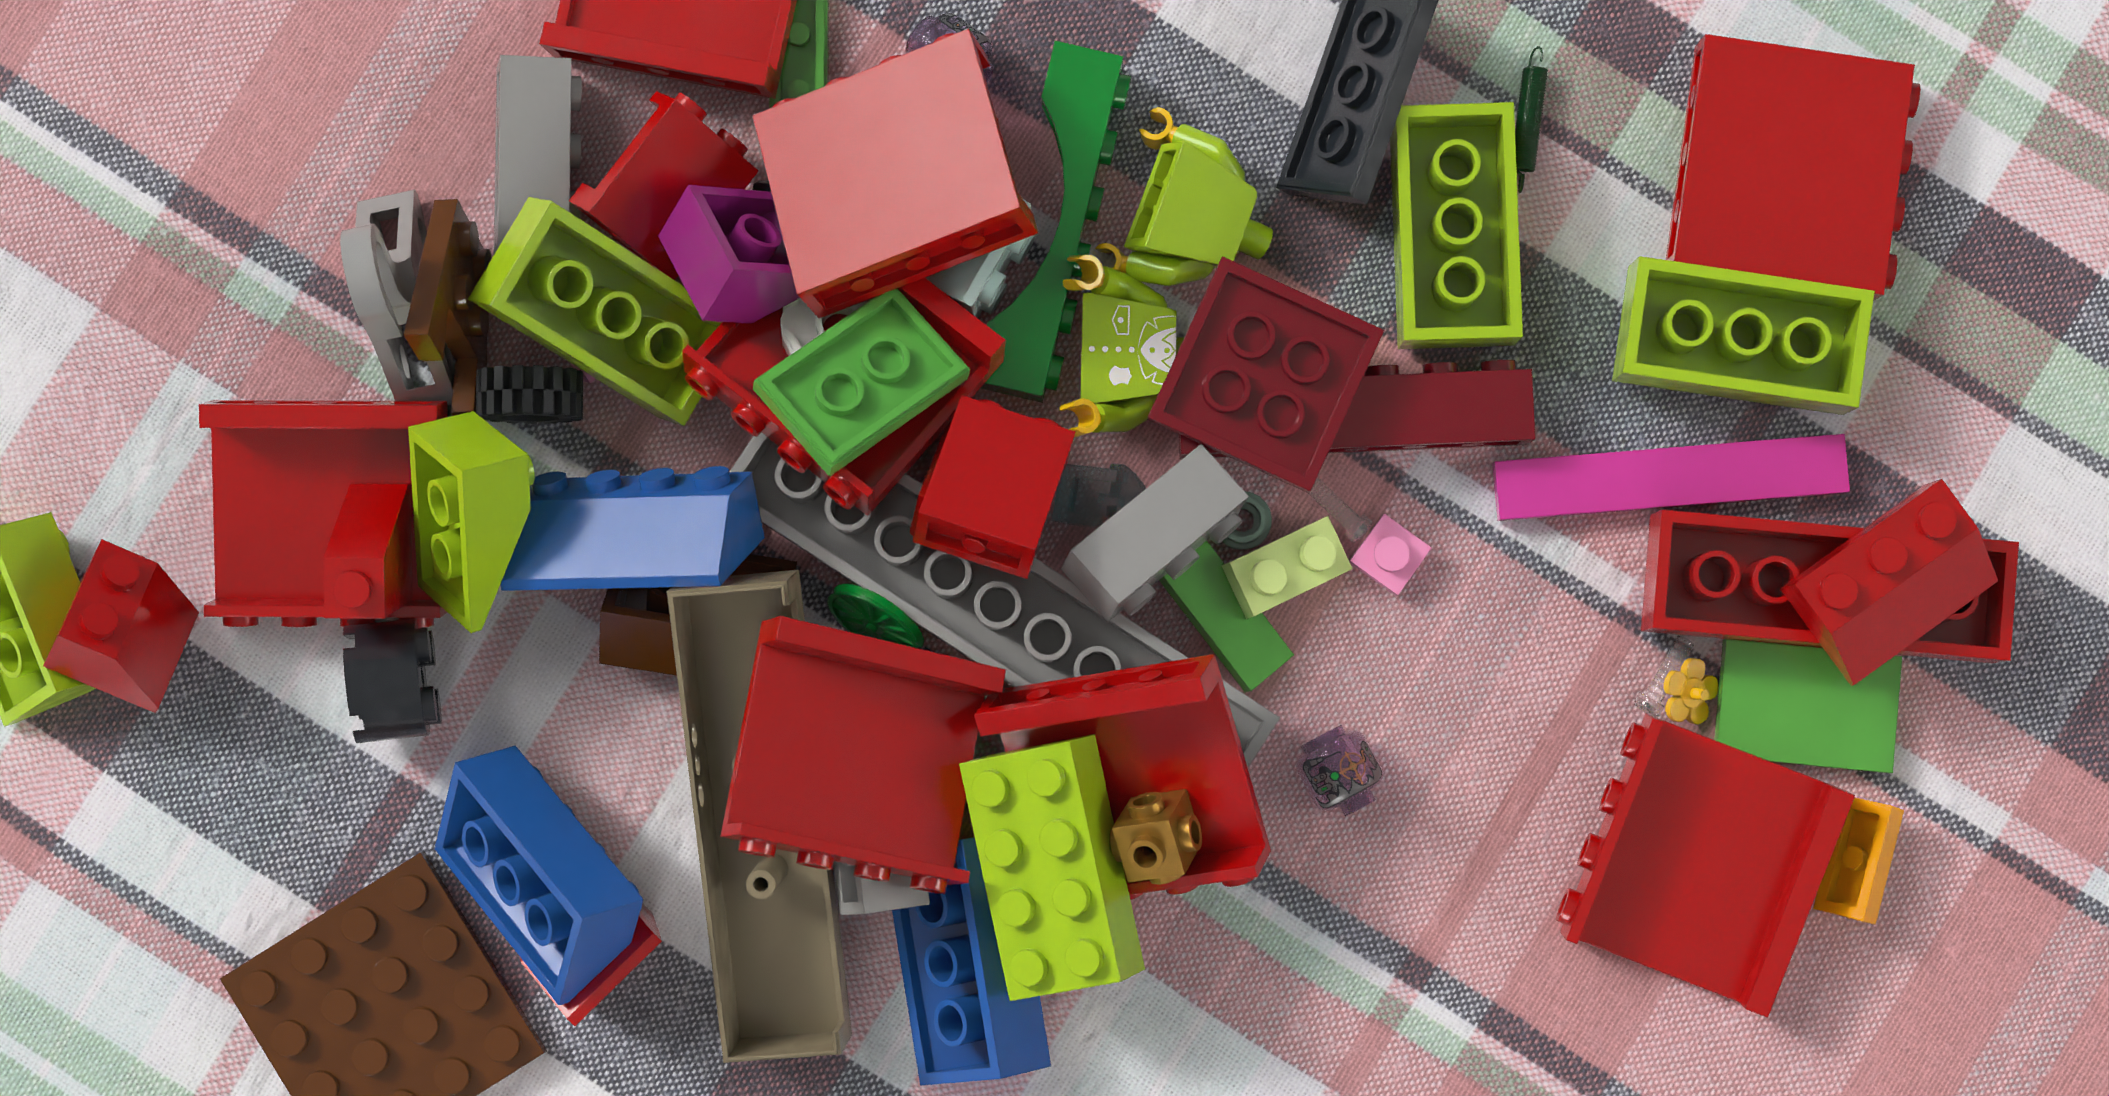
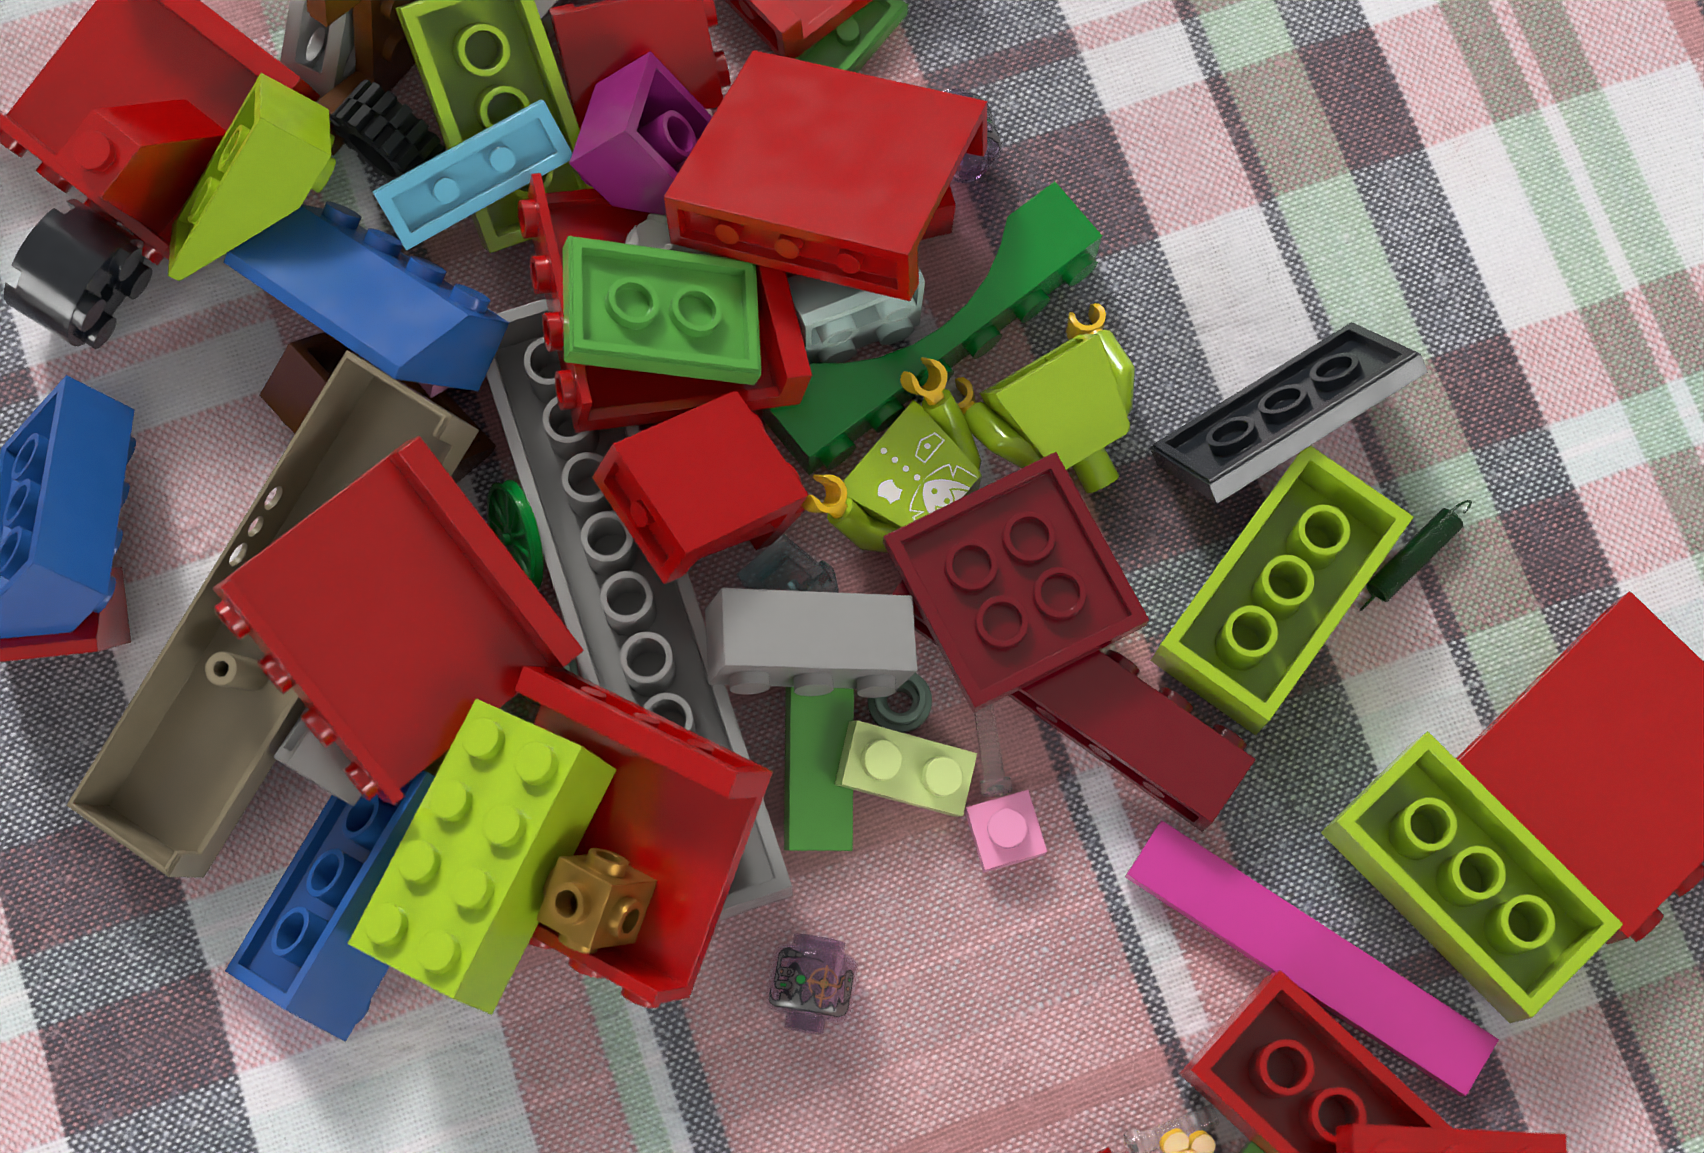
camera: 30 degrees right, 10 degrees down
(636, 382) = (473, 174): none -> medium azure plate

